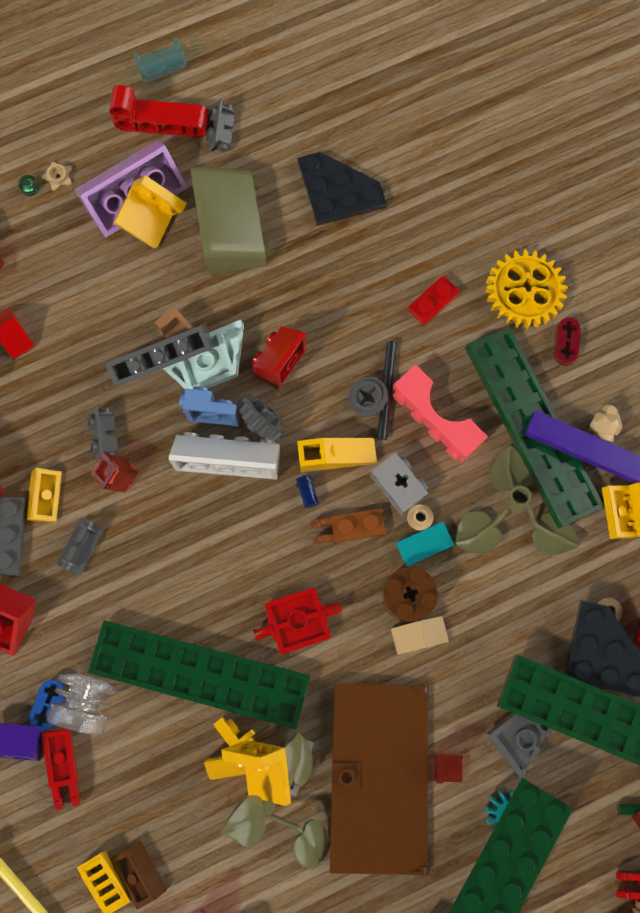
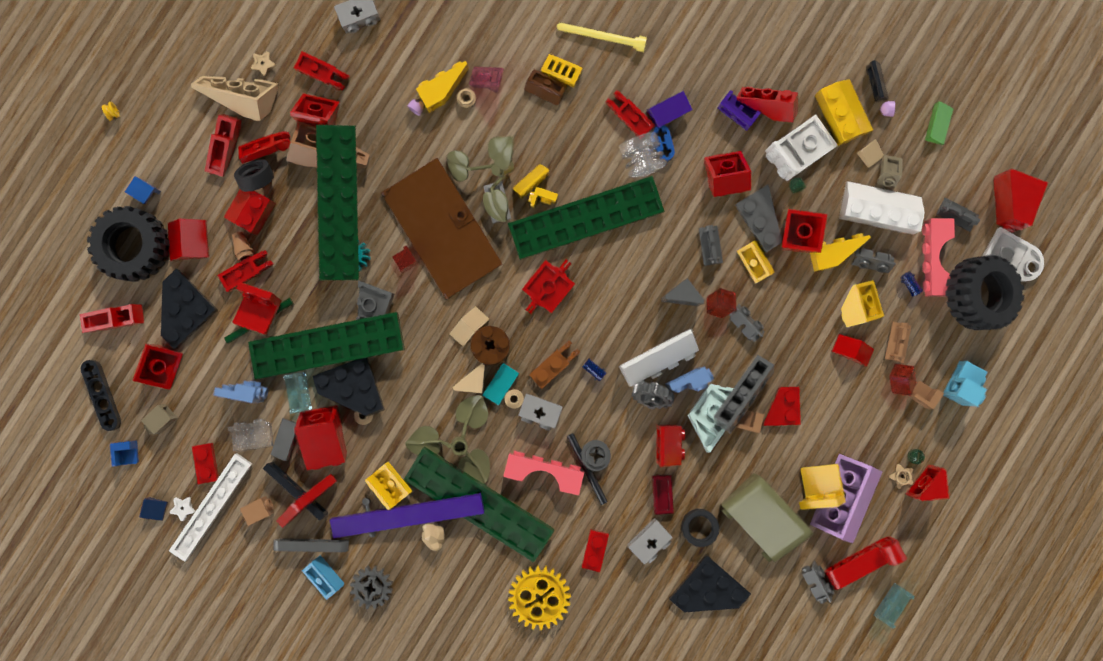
camera: 145 degrees right, 10 degrees up
(35, 144) = (930, 485): none -> red slope
(127, 318) = (784, 408): none -> red wing
(148, 510) = (684, 294): none -> dark grey slope
(264, 769) = (511, 187): yellow bracket -> none
(310, 236) = (714, 529): none -> black tyre
(321, 312) = (662, 494): none -> dark red tile
(335, 453) = (591, 405): yellow slope -> none
(357, 278) = (651, 531): none -> light grey brick
(457, 566) = (473, 381): none -> tan slope
(561, 341) = (494, 576): dark red beam -> none

